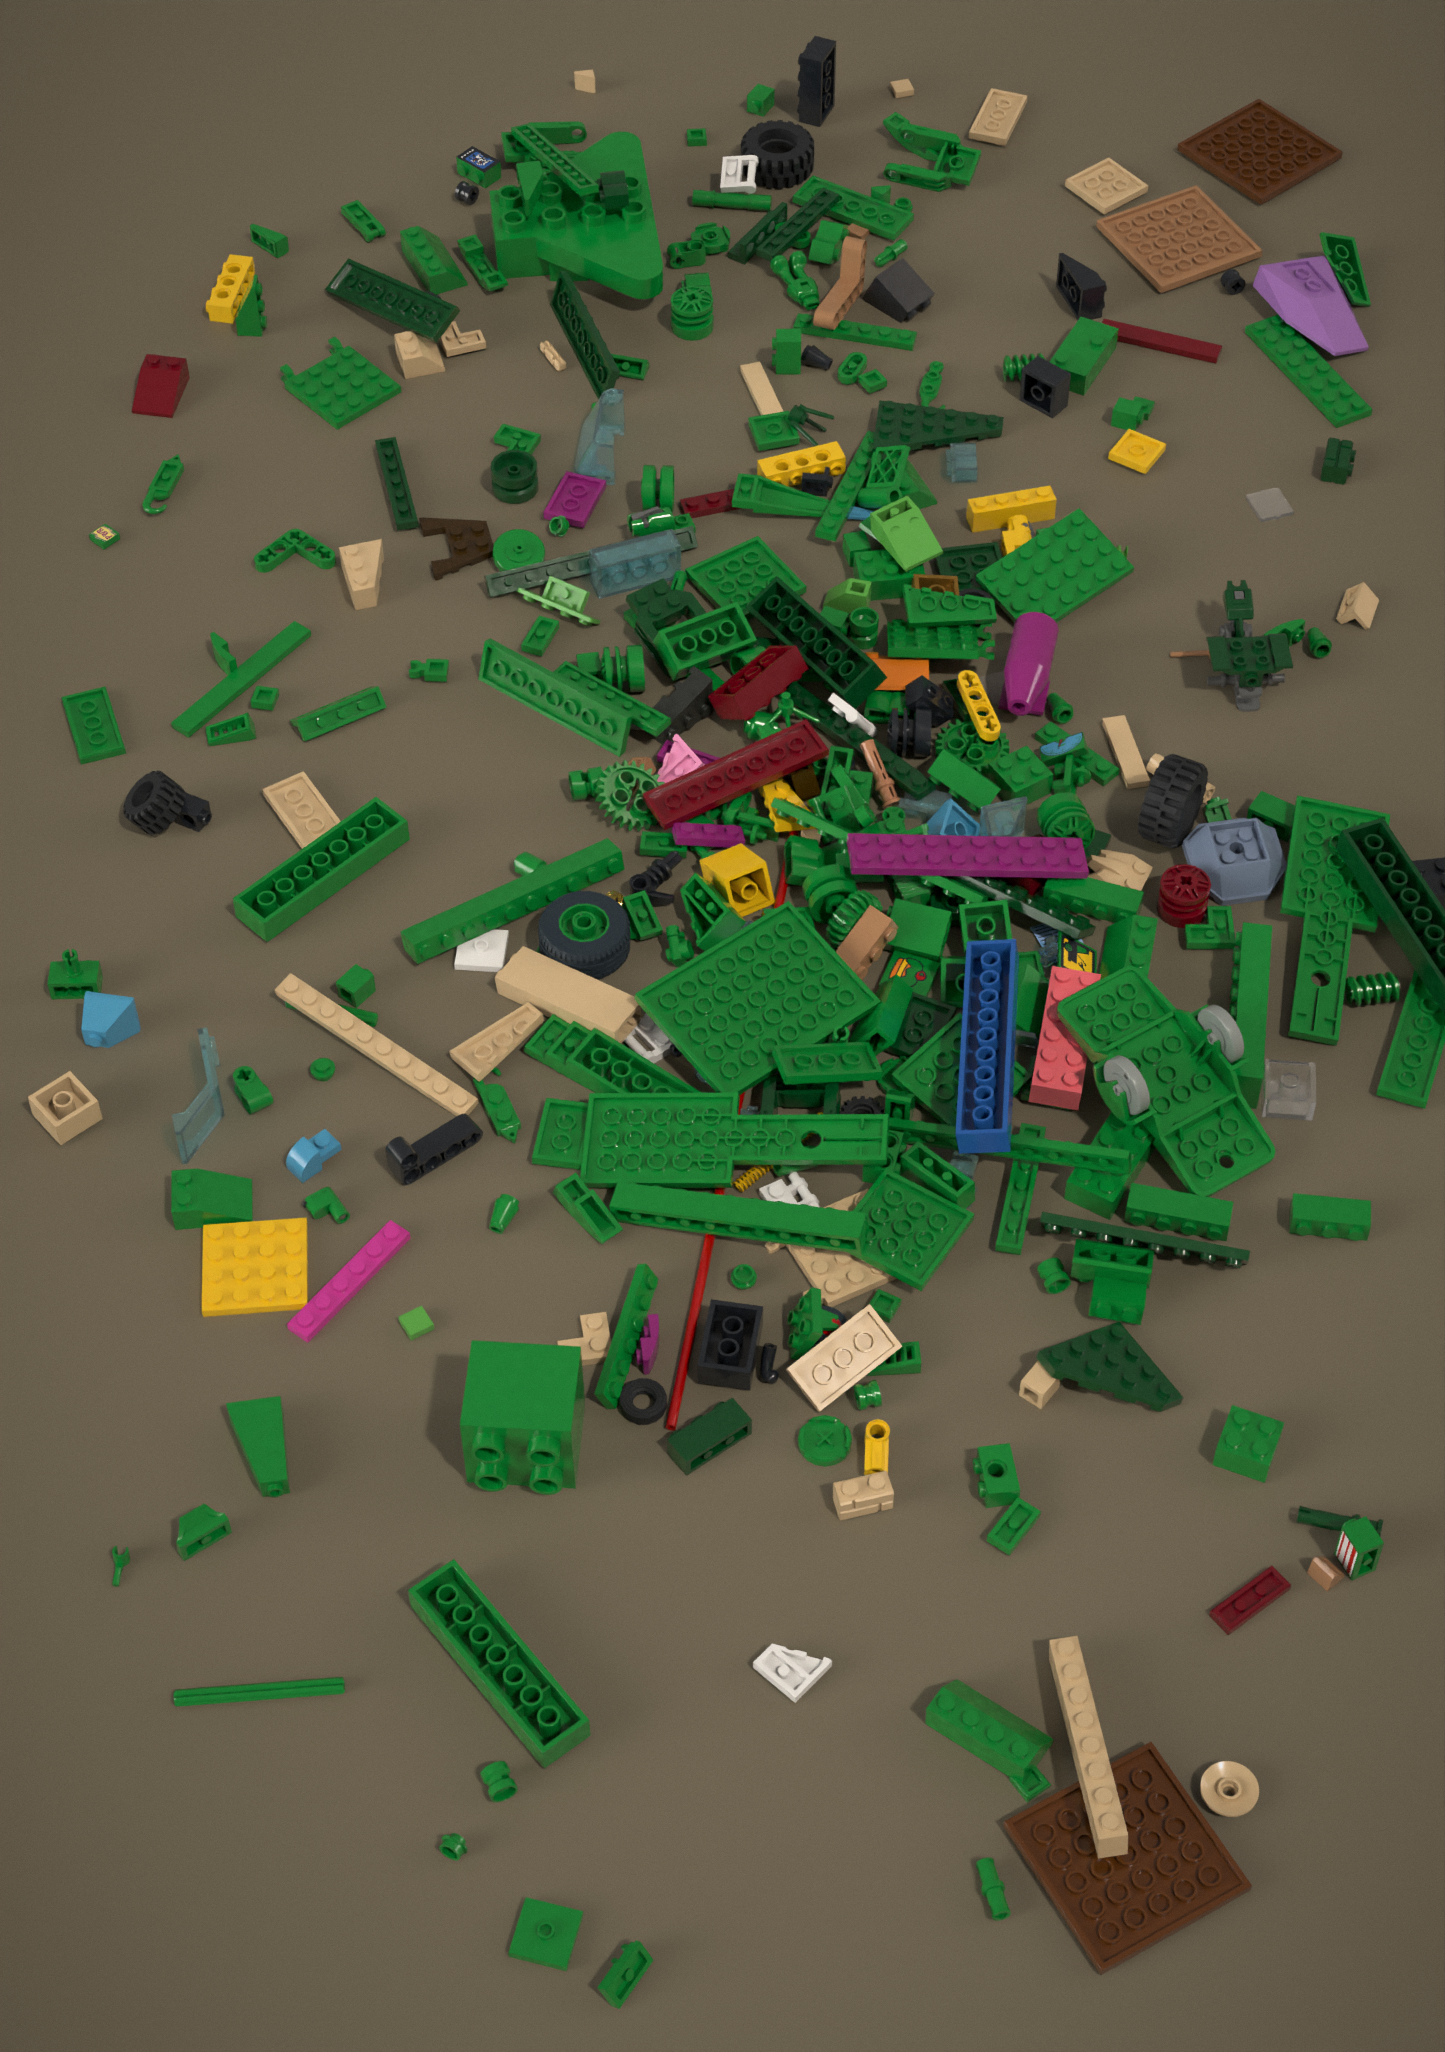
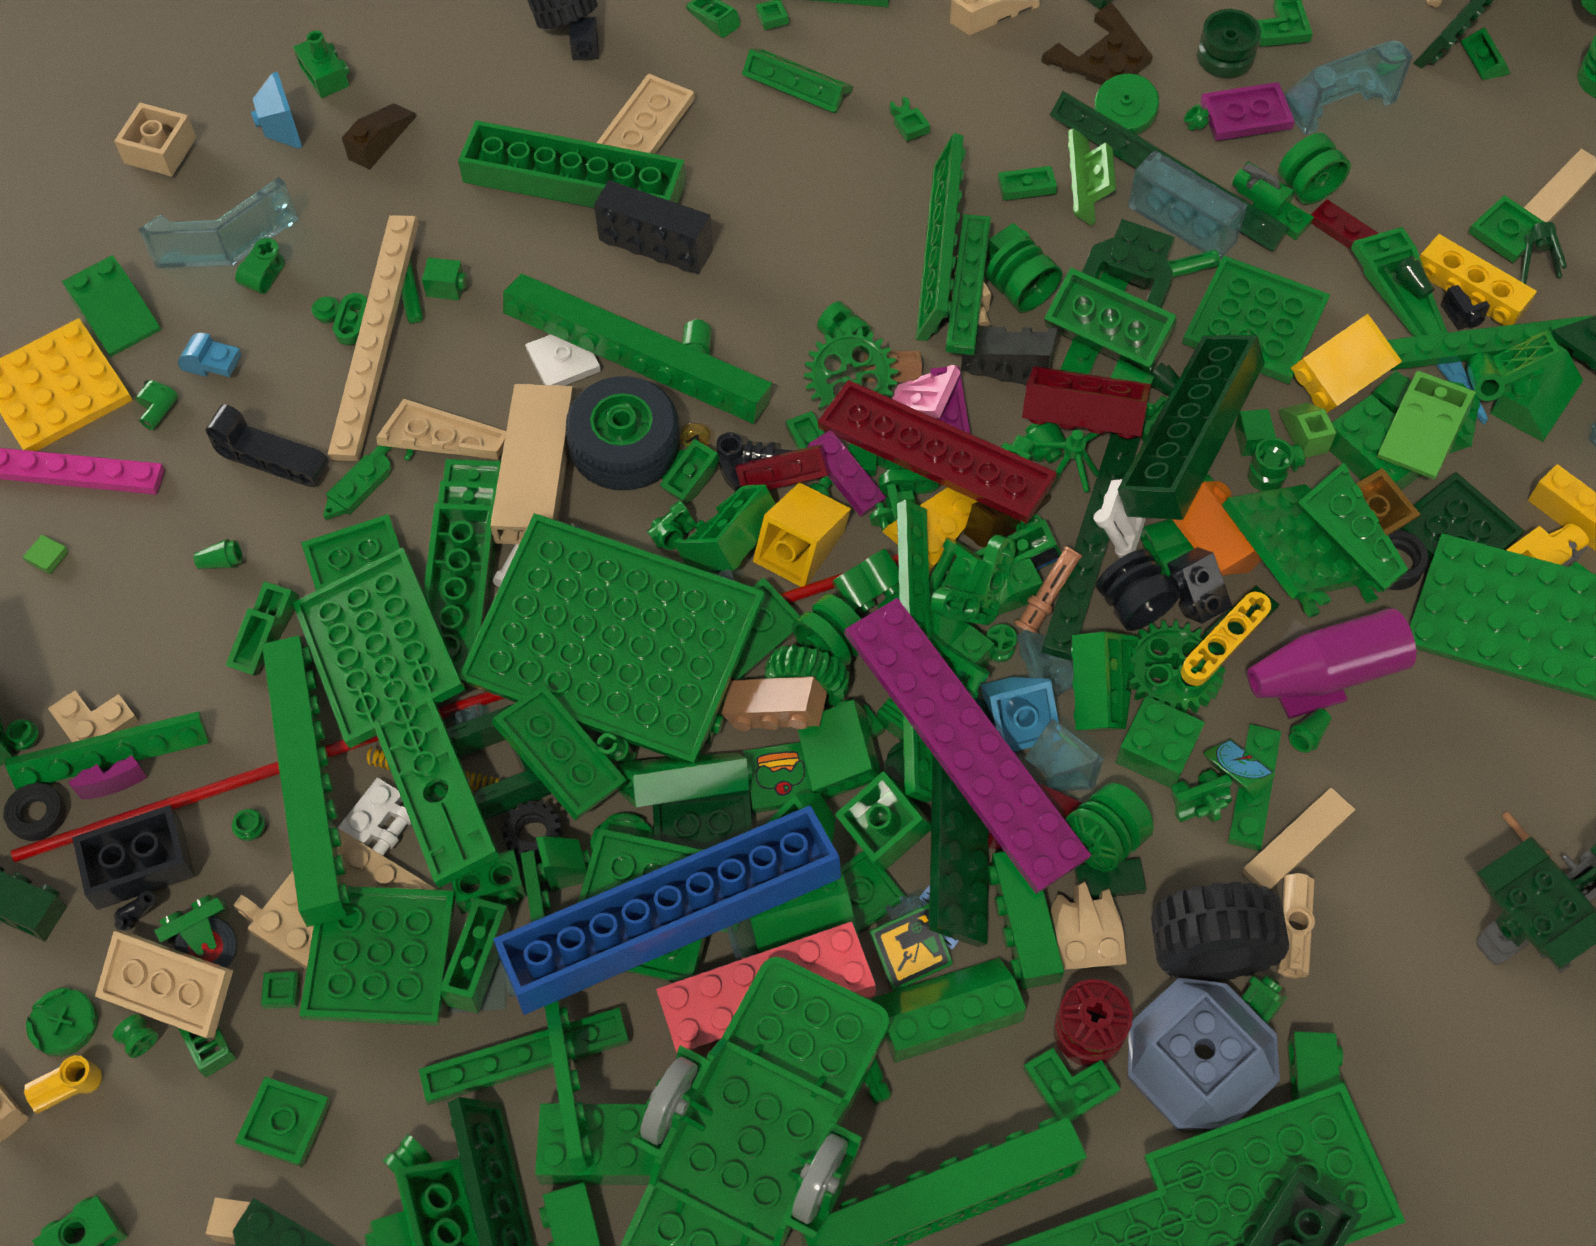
camera: 60 degrees right, 10 degrees up
(177, 973) = (375, 133): none -> dark brown slope
(348, 1057) = (348, 320): none -> green plate
(418, 843) = (653, 227): none -> black brick
(684, 862) = (784, 468): none -> dark red plate
(781, 488) = (1413, 276): none -> dark green cone
(822, 551) = (1346, 364): none -> yellow slope
(984, 1335) = (283, 1121): none -> green plate

